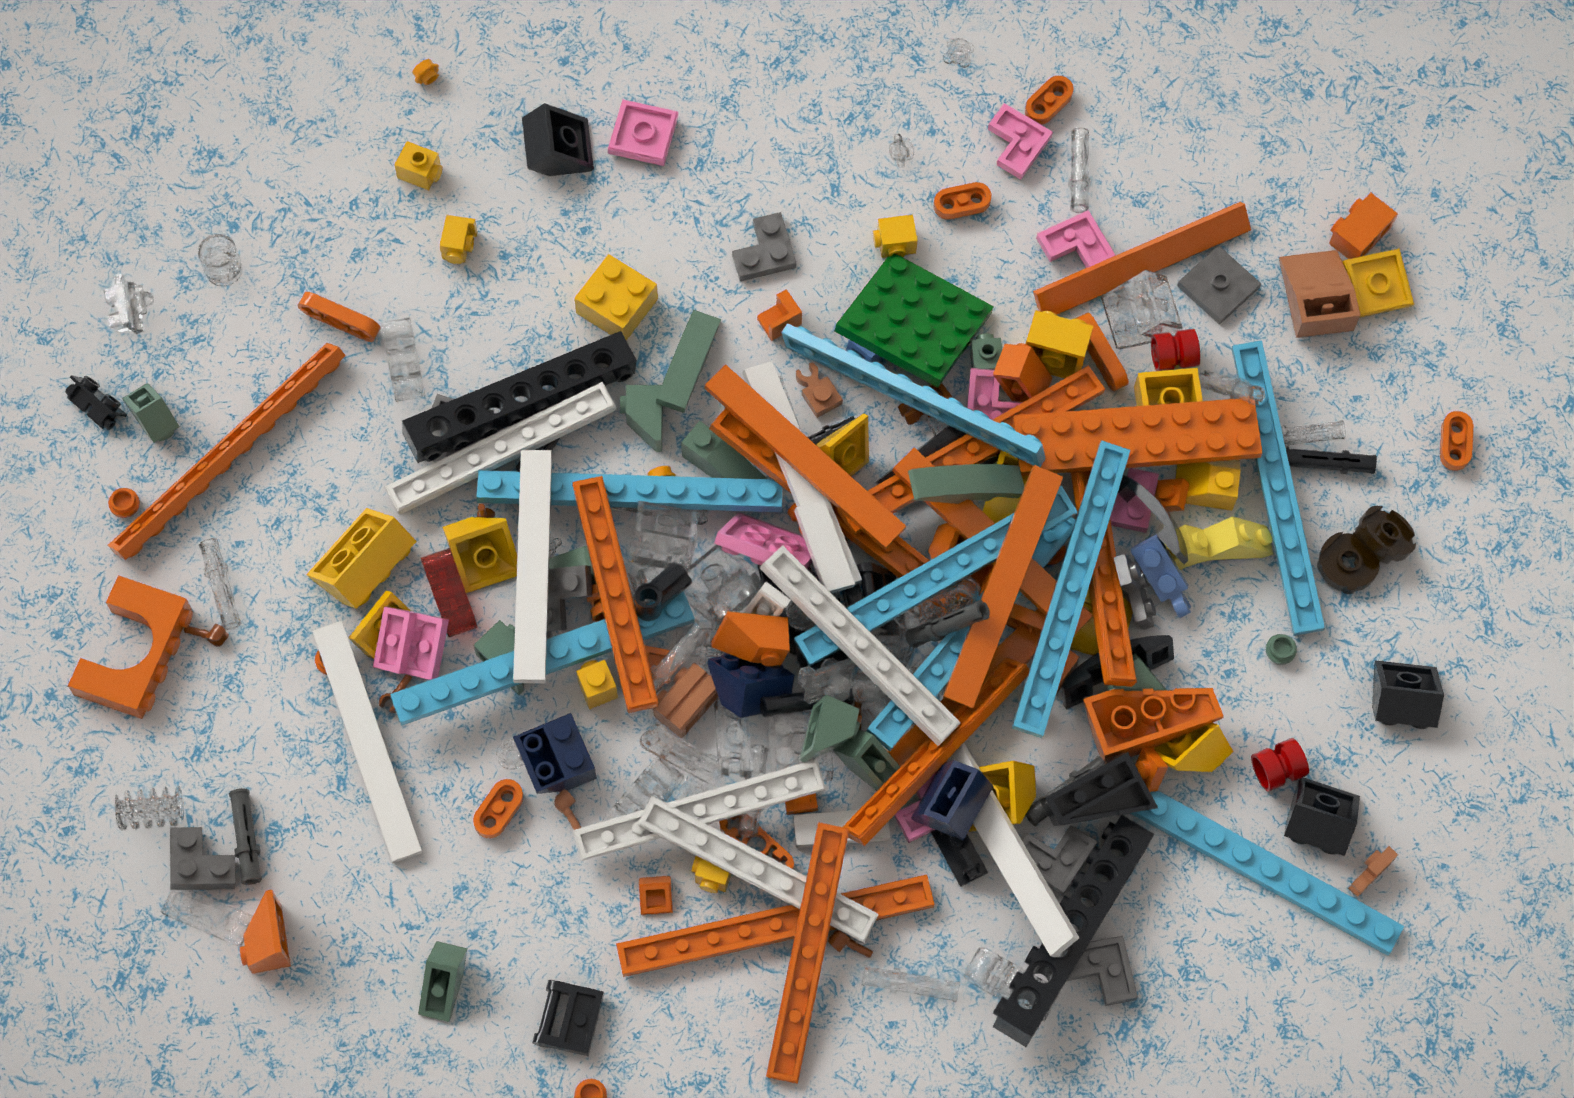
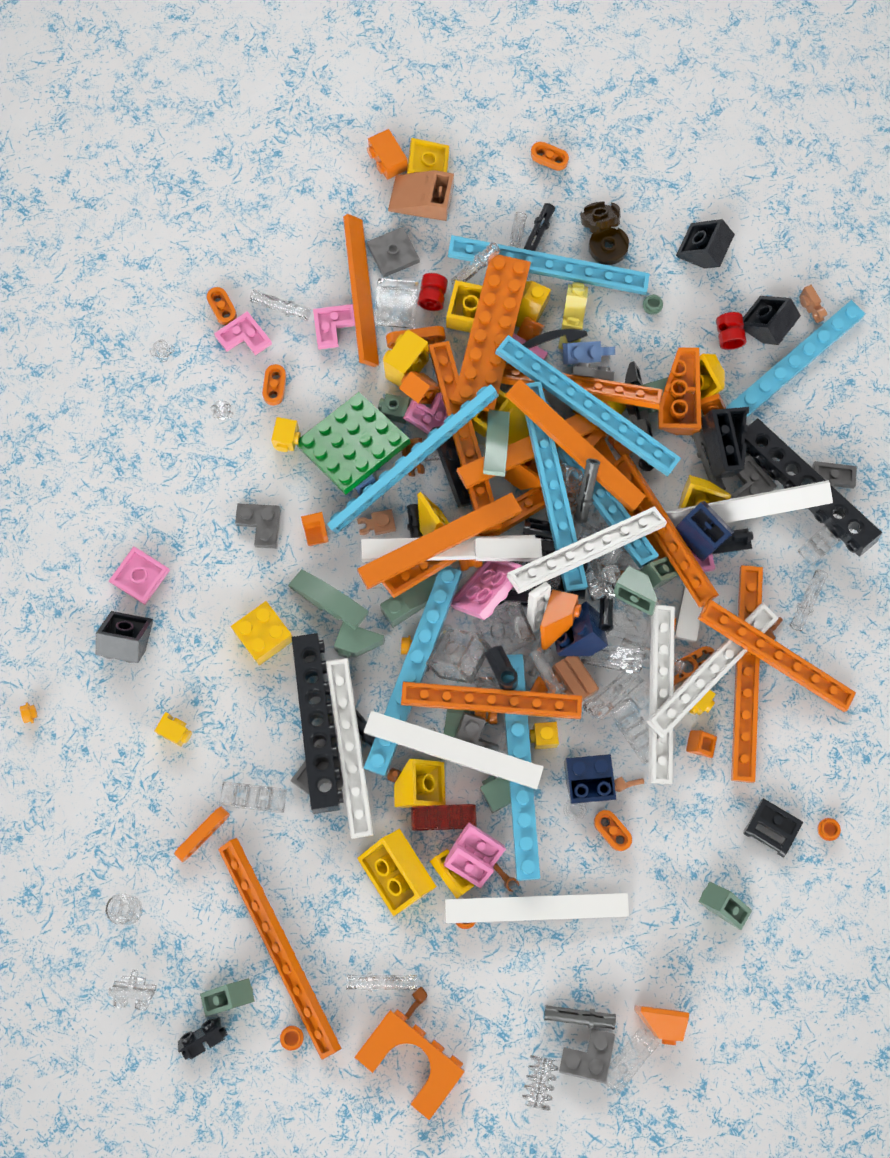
camera: 70 degrees left, 5 degrees up
(418, 165) = (103, 740): yellow brick -> none

